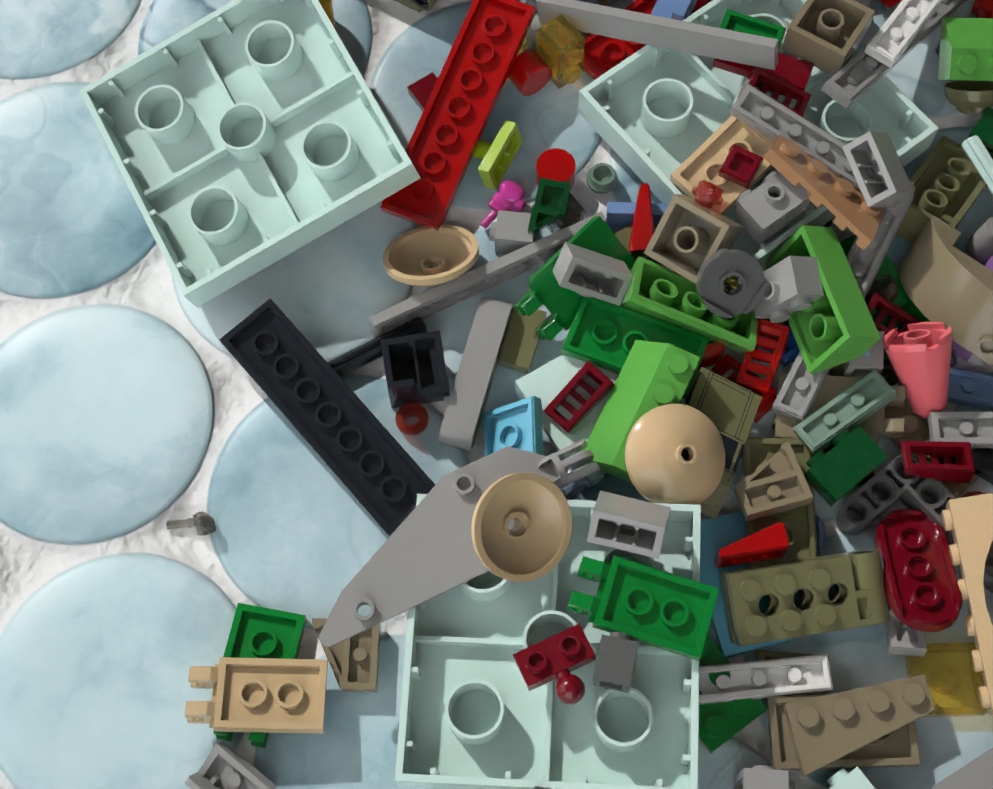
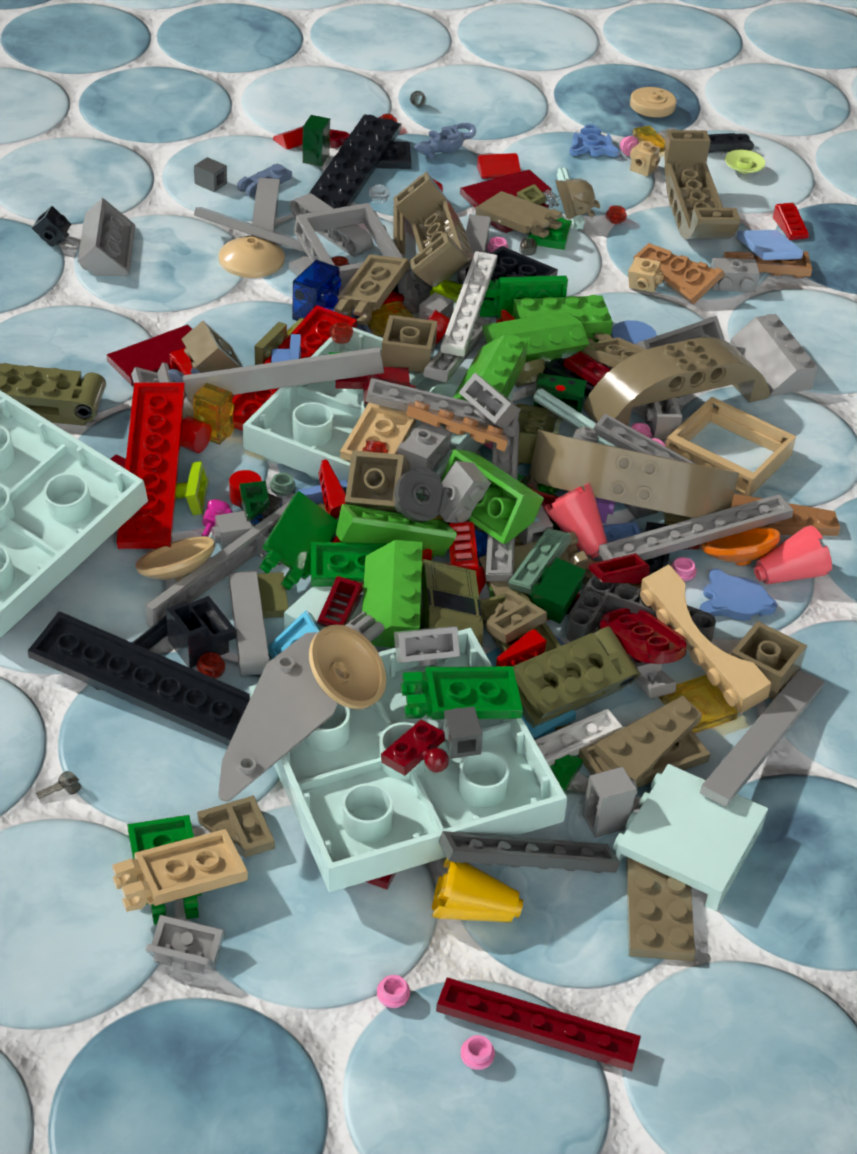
camera: 30 degrees left, 25 degrees down
(592, 274) = (312, 523): light grey brick -> none
(656, 459) = (433, 601): tan dish -> none
(741, 166) = (390, 430): dark red tile -> none
(917, 103) = (498, 363): none -> bright green slope

